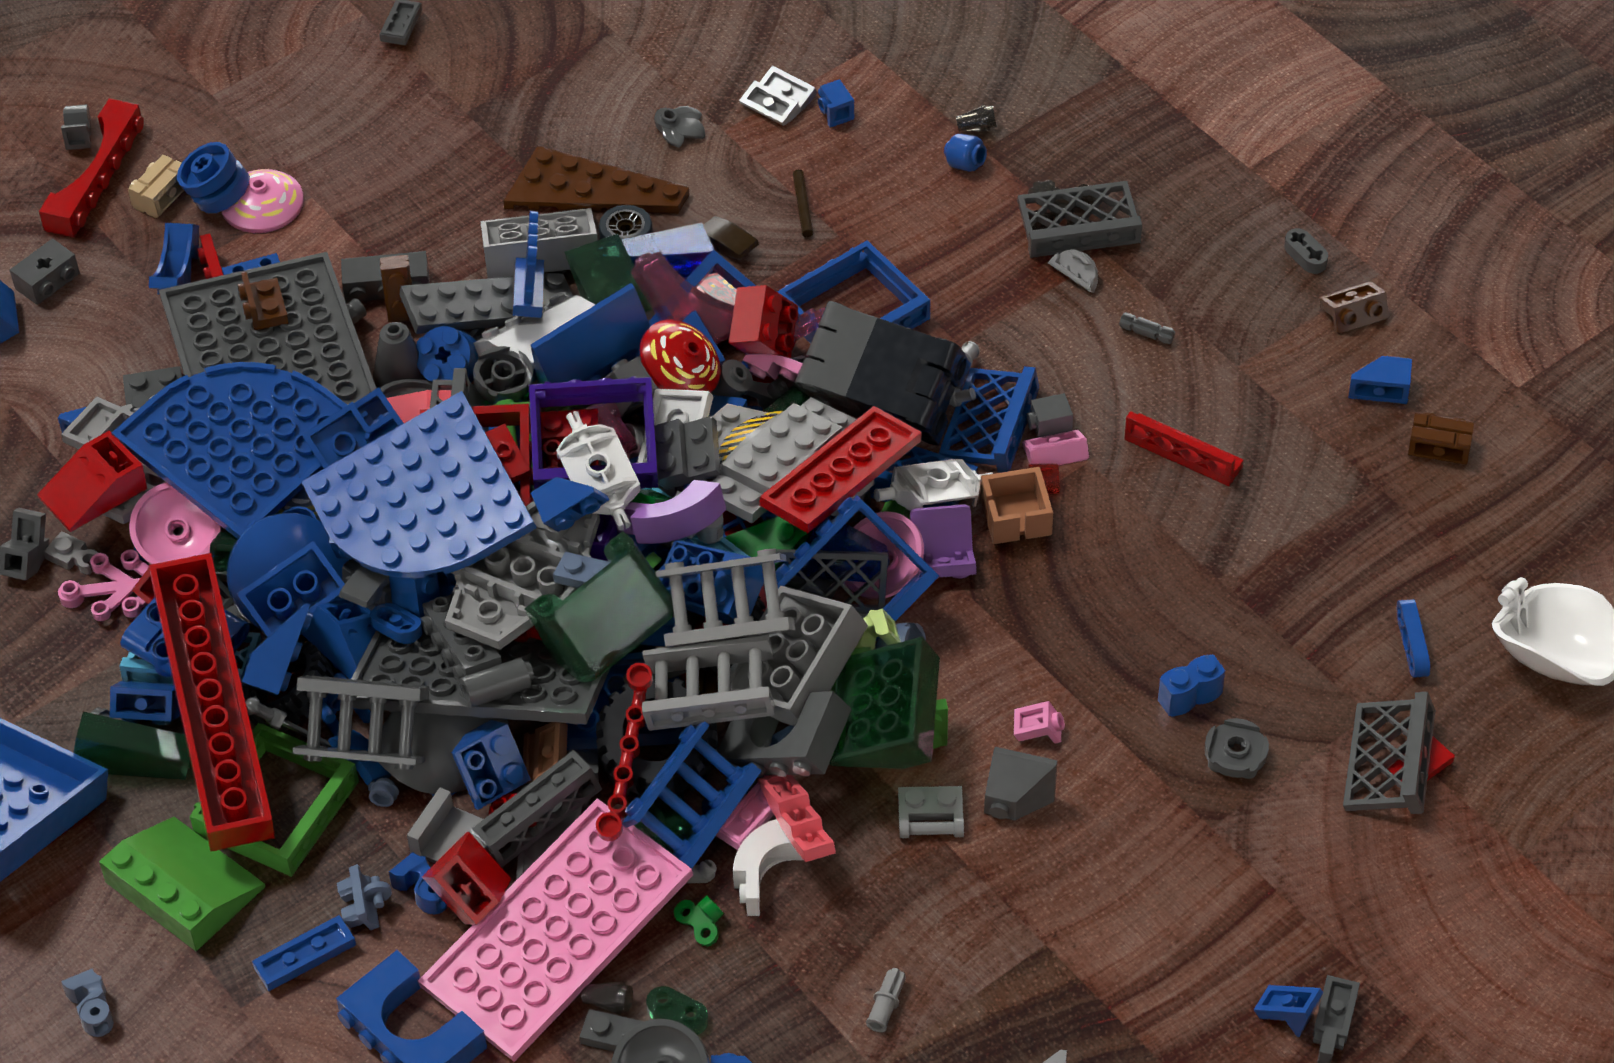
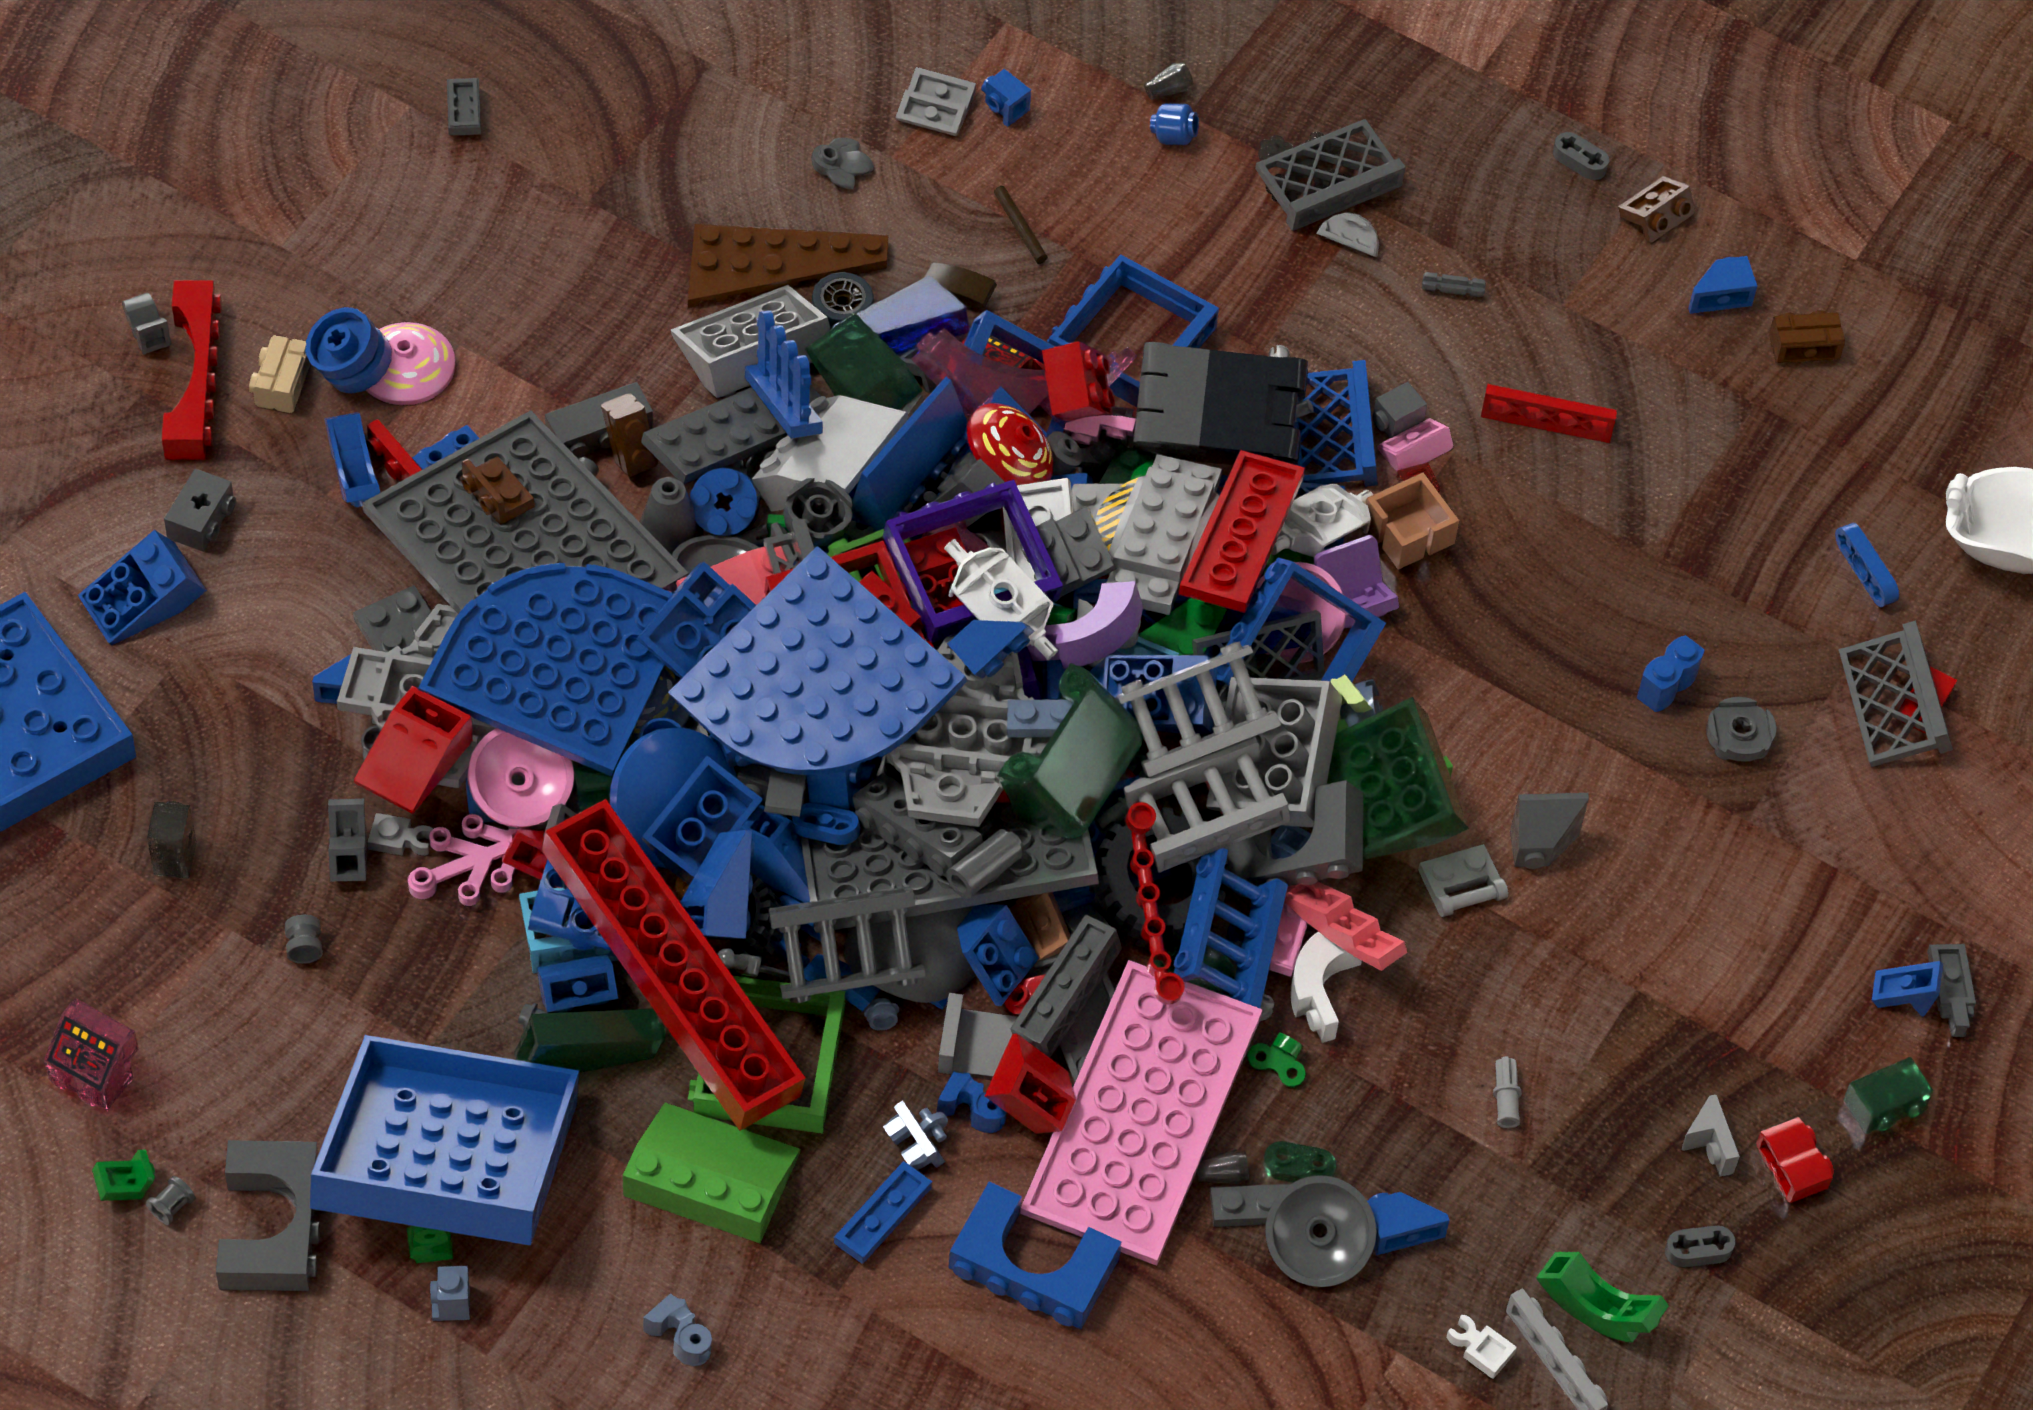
camera: 25 degrees left, 5 degrees up
(1038, 721) = (1531, 754): bright pink bracket -> none

